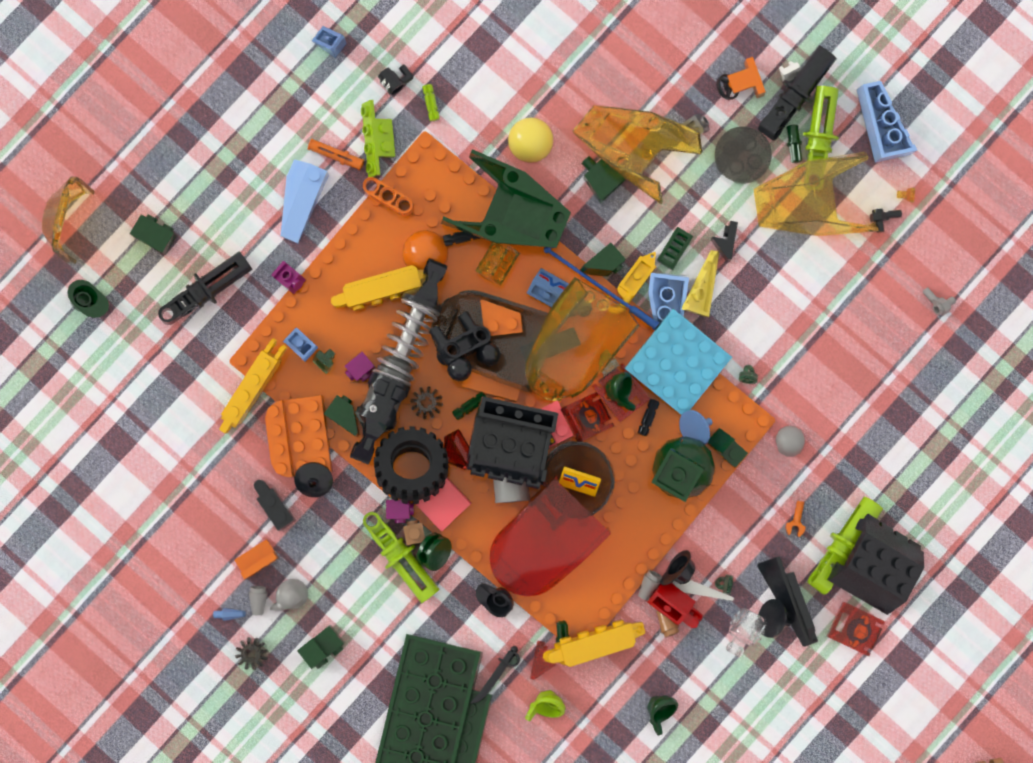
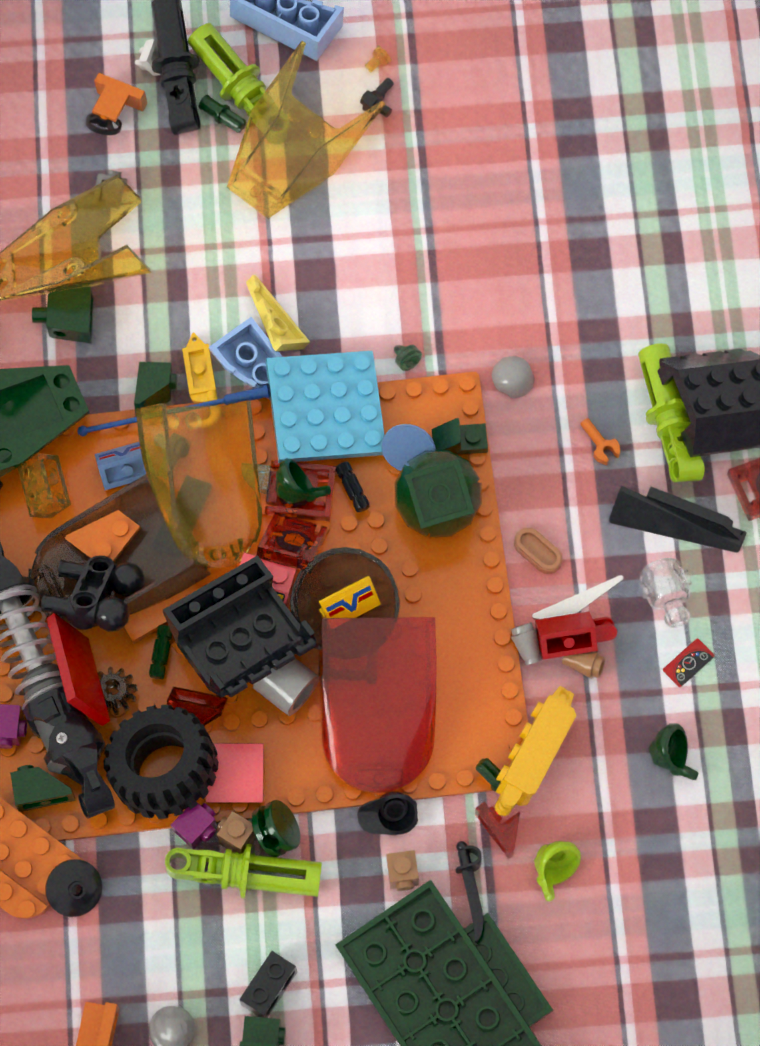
camera: 45 degrees left, 15 degrees down
(273, 505) = (58, 956): black brick -> none
(355, 621) = (268, 985): none -> black brick
(416, 380) = (78, 670): none -> red tile
(472, 633) = (402, 870): none -> medium nougat brick
(680, 569) = (539, 596): black piece -> none
(685, 235) = (204, 295): dark green slope -> none
(706, 543) = (538, 550): none -> nougat tile
(718, 675) = (688, 662): none -> sticker
(726, 246) = (253, 258): black slope -> none
(728, 583) = (602, 566): tile -> none
(743, 155) = (184, 170): clear smoke tile -> none
(775, 616) = (681, 544): black shield -> none
(941, 305) = (517, 121): light grey piece -> none

